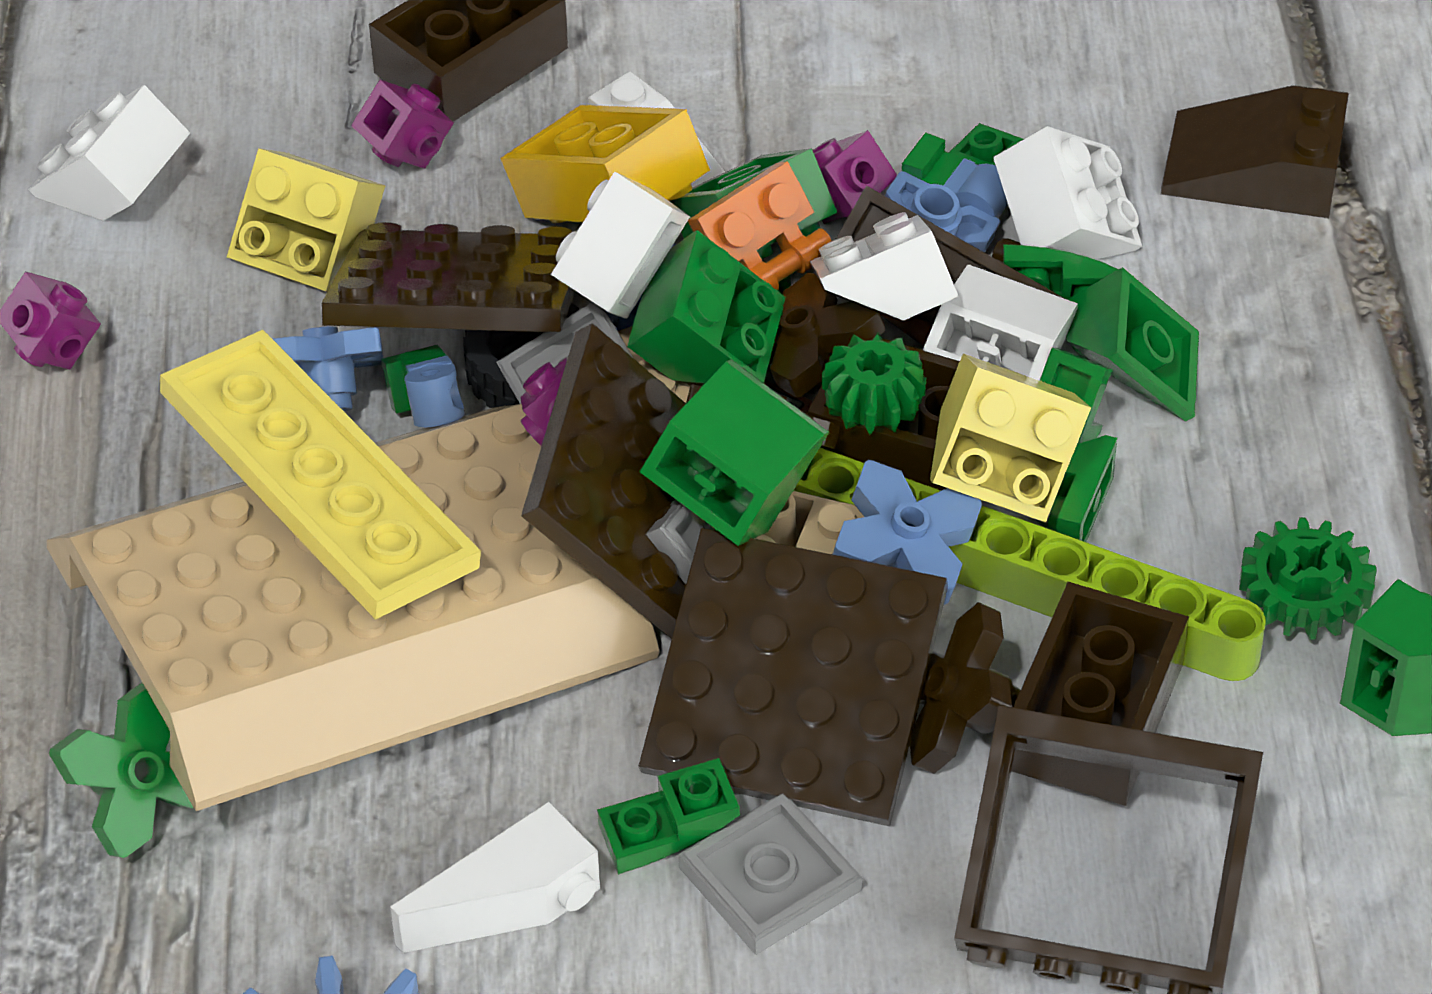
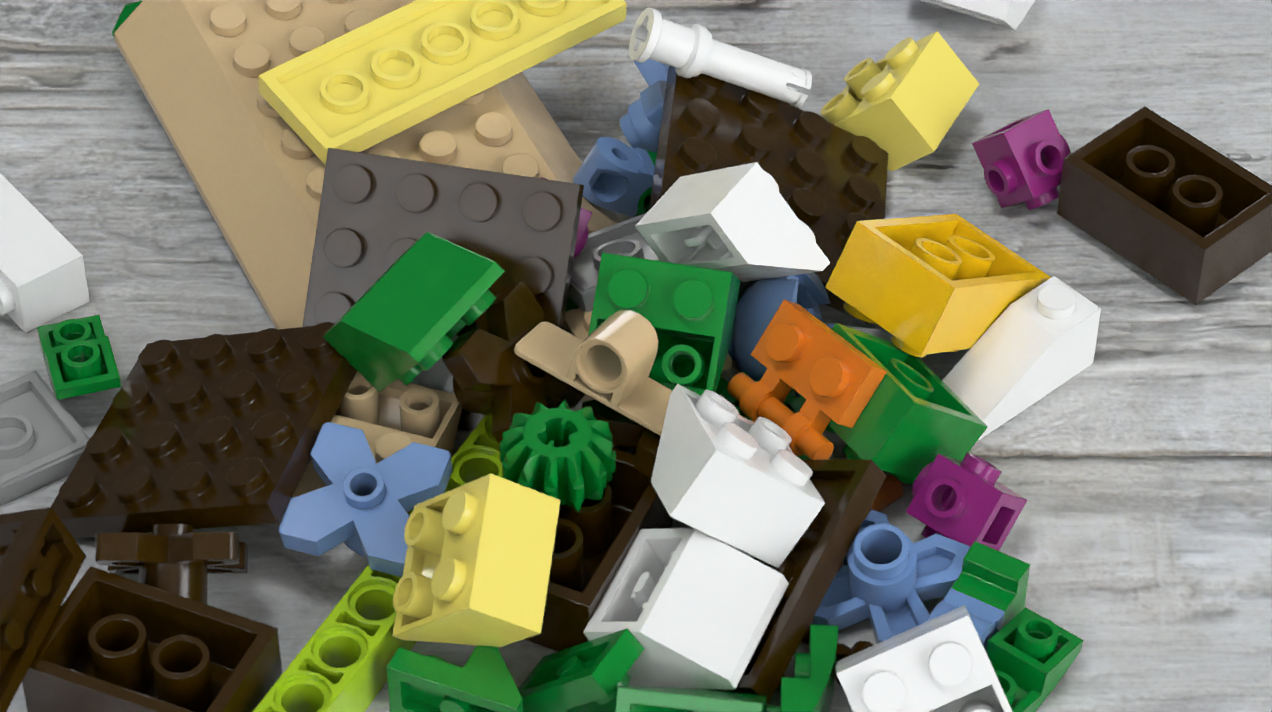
camera: 90 degrees right, 5 degrees down
(351, 266) = (695, 52): none -> white pin
(784, 332) = (606, 365): none -> tan piece

